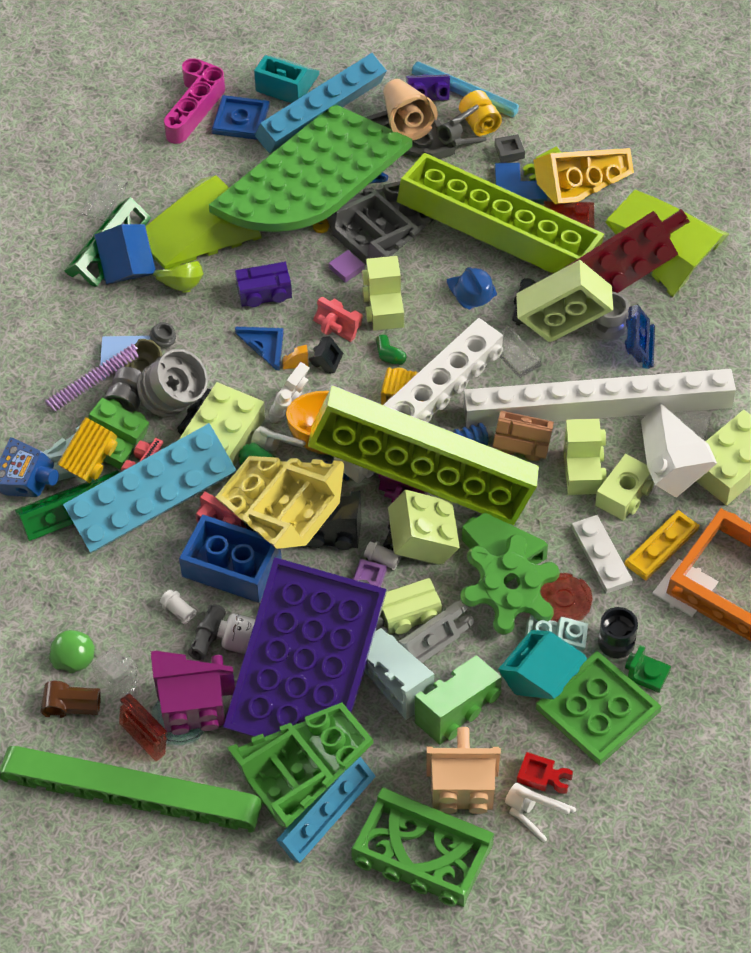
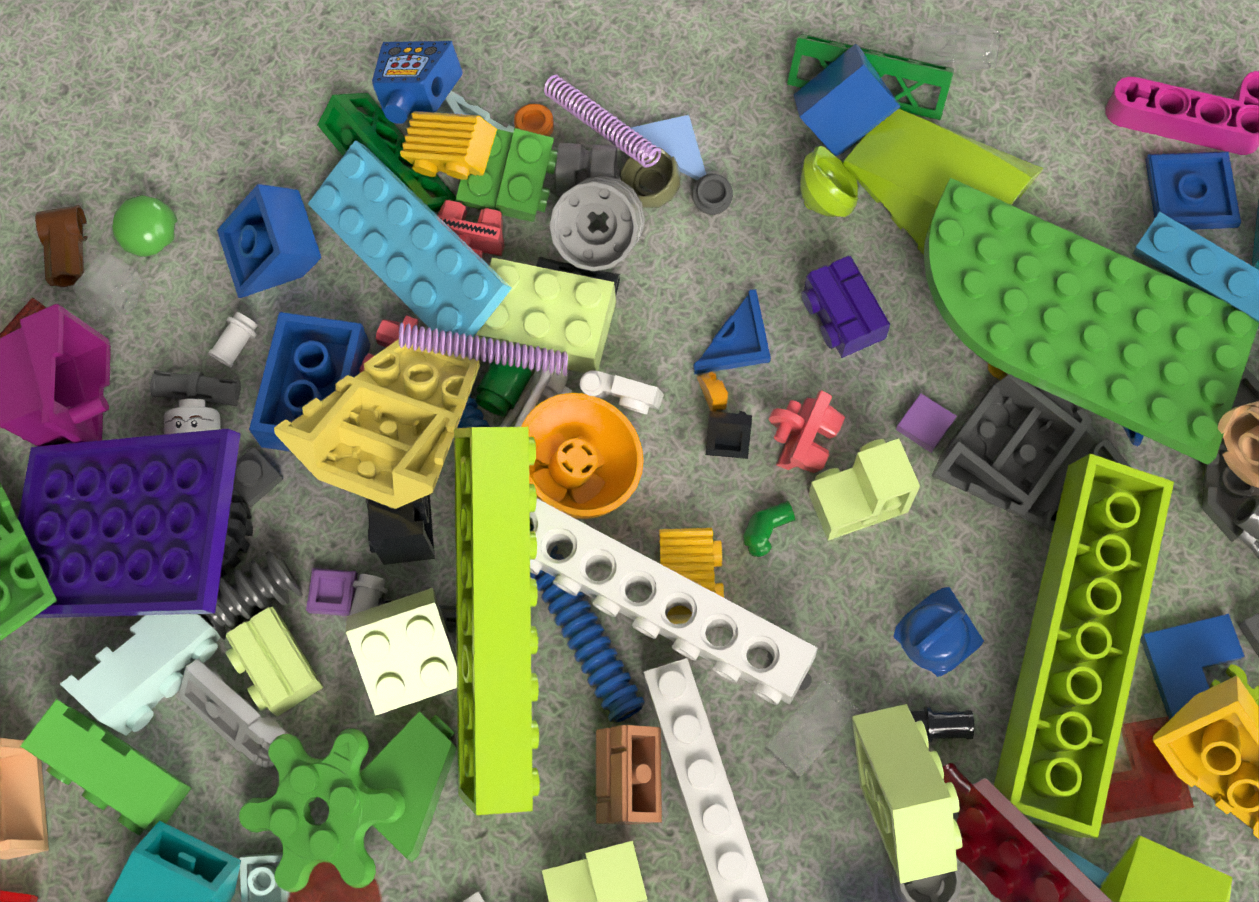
camera: 80 degrees right, 15 degrees up
(72, 419) = (534, 119): none -> orange tile
(113, 577) = (268, 240): none -> blue slope
(224, 473) = (483, 349): none -> lavender piece

